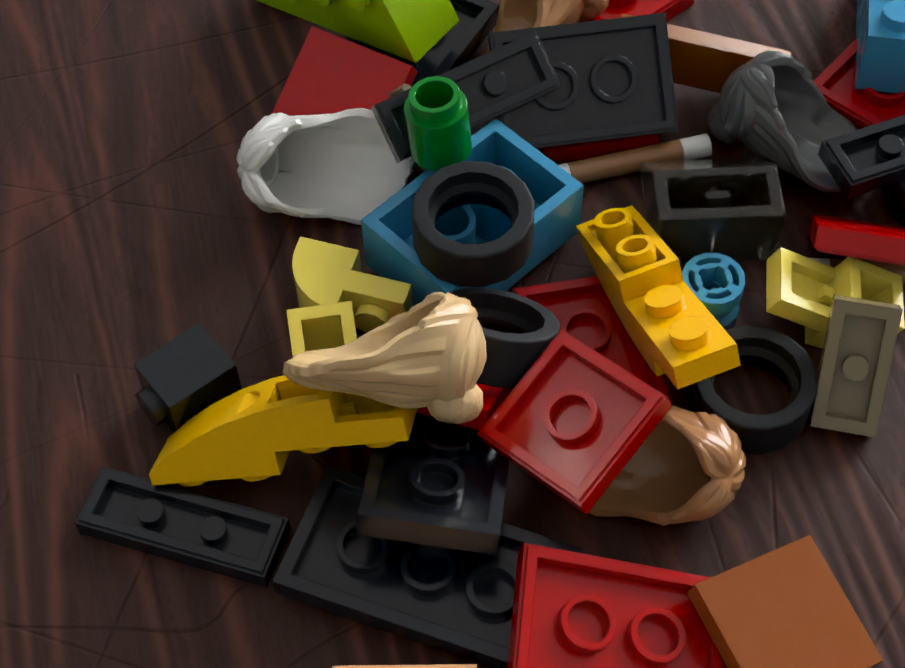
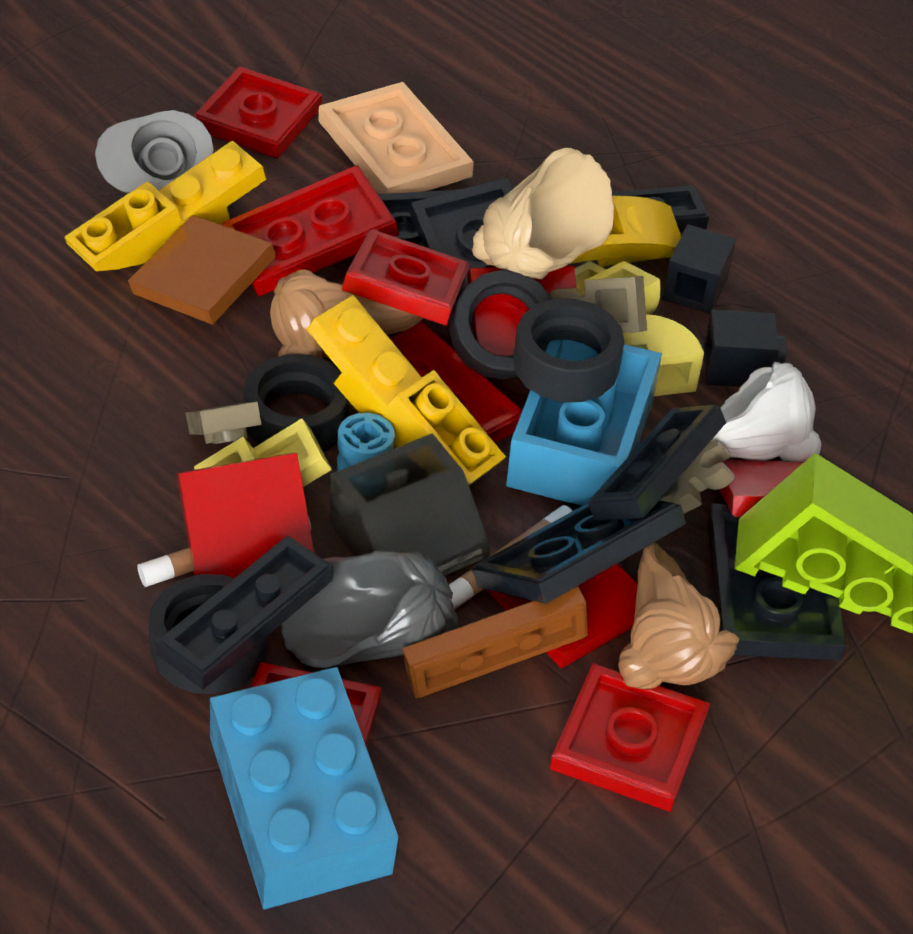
camera: 145 degrees right, 10 degrees down
(237, 263) = (739, 345): none -> black brick
(369, 284) = (619, 296): none -> dark tan plate
(437, 123) = (650, 388): green brick -> none

